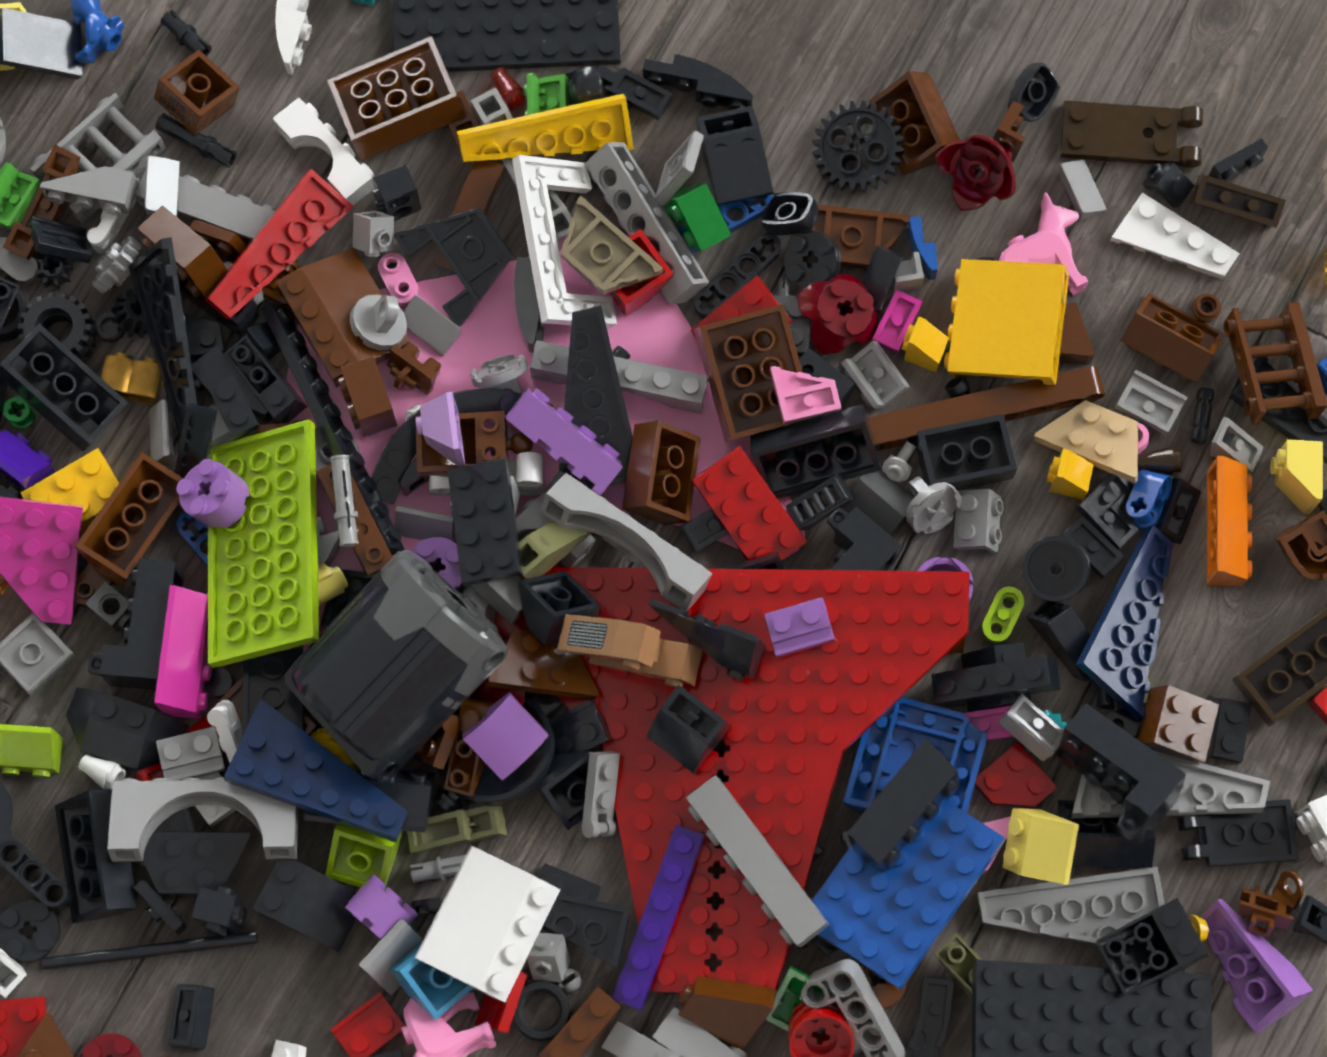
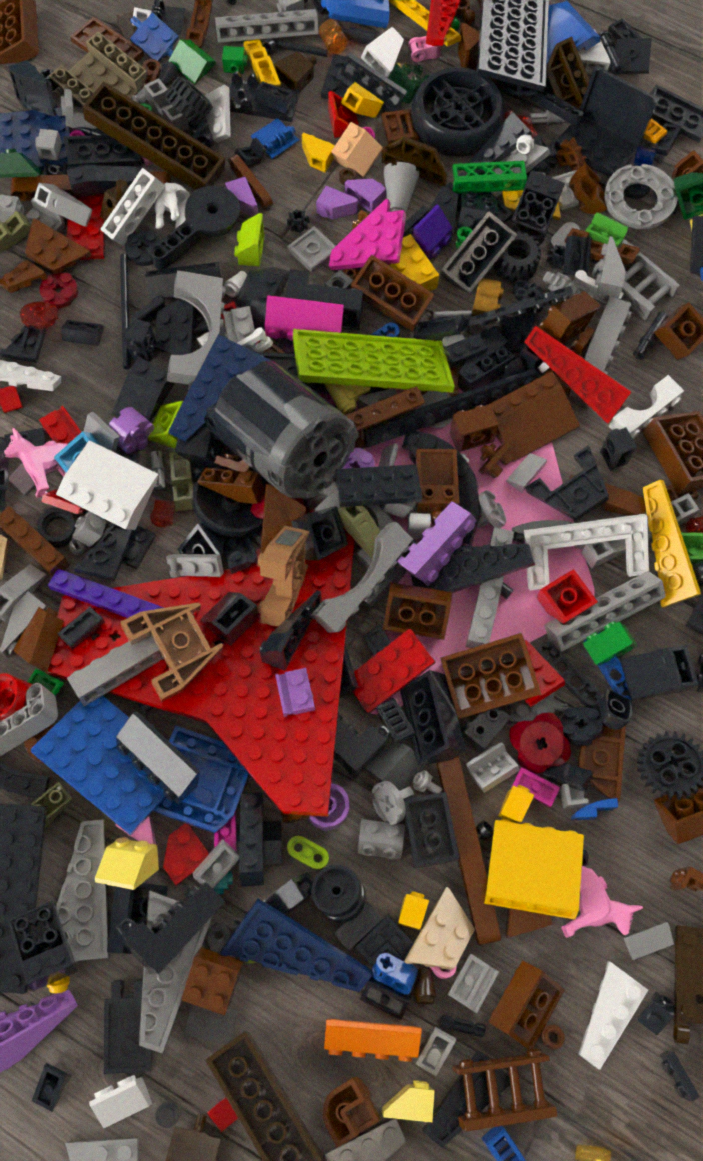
camera: 90 degrees right, 5 degrees down
(161, 184) = (615, 308): slope -> none
(213, 494) = (405, 334): medium lavender brick -> none
(345, 512) = (413, 397): light grey pin -> none
(373, 232) = (589, 434): light grey brick -> none
(378, 321) = (526, 435): light grey tile -> none
(397, 278) = (560, 453): bright pink plate -> none
(442, 428) = (443, 461): lavender slope -> none
(505, 736) = (231, 498): medium lavender slope -> none
(513, 852) = (163, 513): none -> clear red bracket
(604, 252) = (577, 573): dark tan wing -> none
(679, 168) = (646, 630): light grey tile -> none
(710, 946) = (81, 628): none -> black plate
(741, 787) = (178, 641): none -> medium nougat wedge
(803, 396) = (472, 707): bright pink wing -> none
(972, 185) = (658, 856): dark red brick -> none
(1237, 201) = (643, 1071): dark brown brick -> none
(1279, 905) = (69, 1053): reddish brown piece -> none

